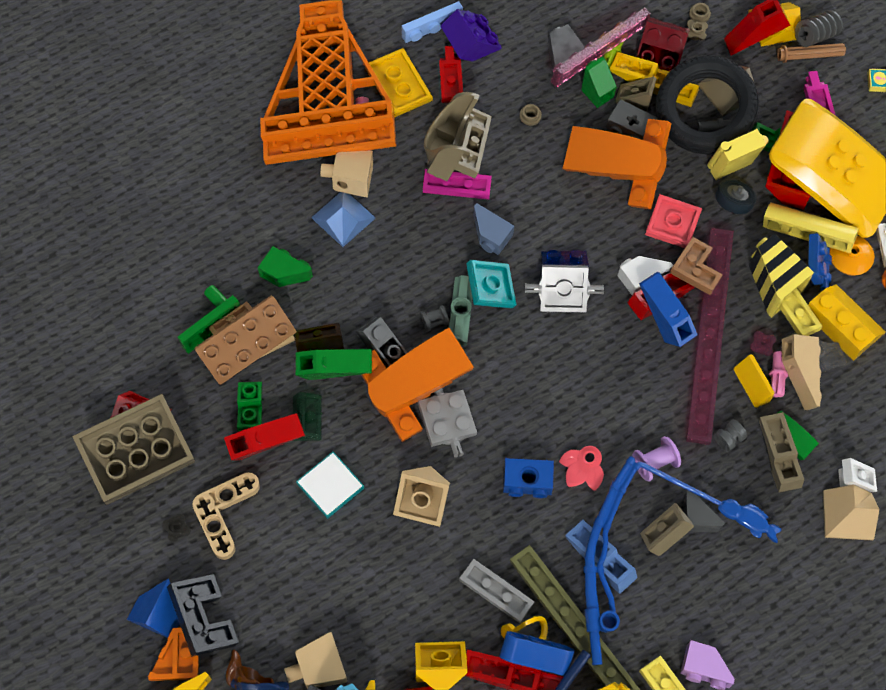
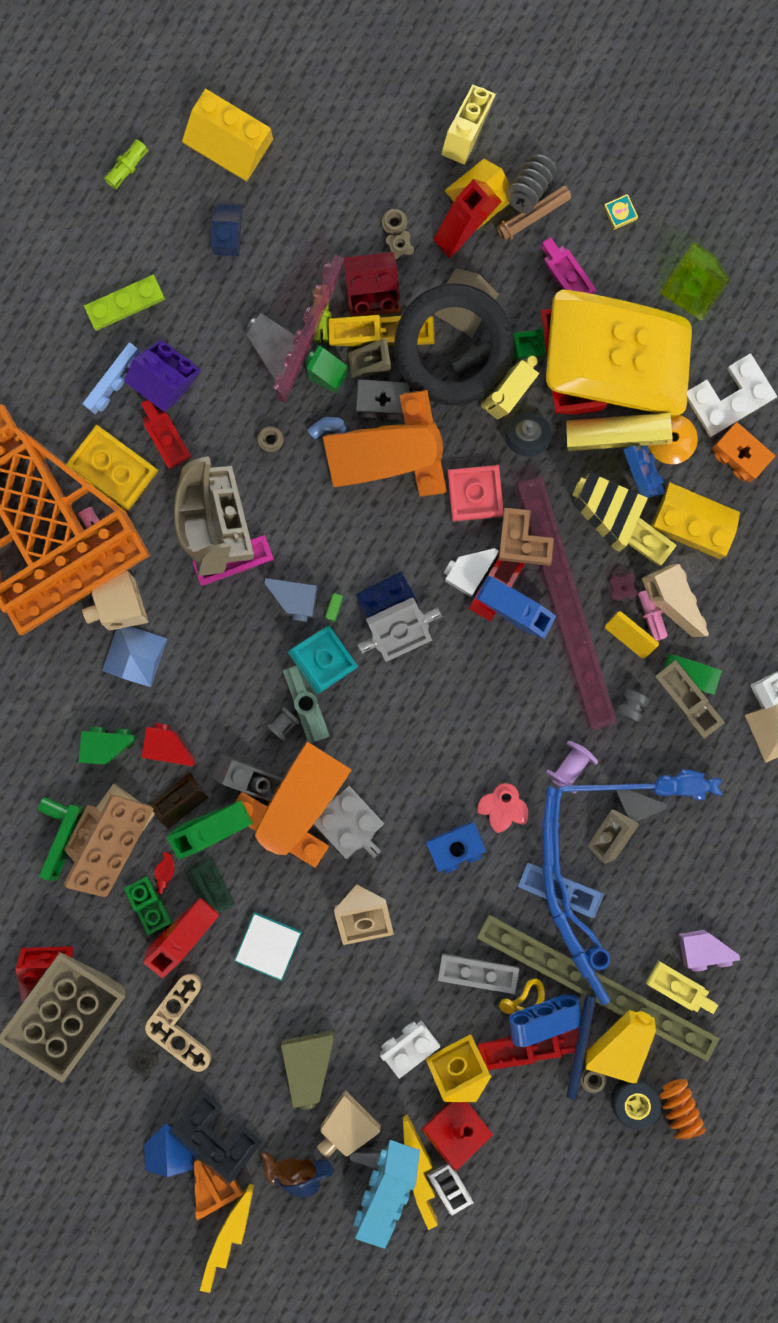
camera: 20 degrees left, 20 degrees up
(277, 387) = (164, 871): none -> red piece
(312, 596) = (306, 1066): none -> olive slope
(330, 291) = (166, 746): none -> red slope
(405, 625) = (409, 1048): none -> white bracket
(519, 251) = (334, 607): none -> bright green tile
(579, 122) = (325, 424): none -> medium blue arm

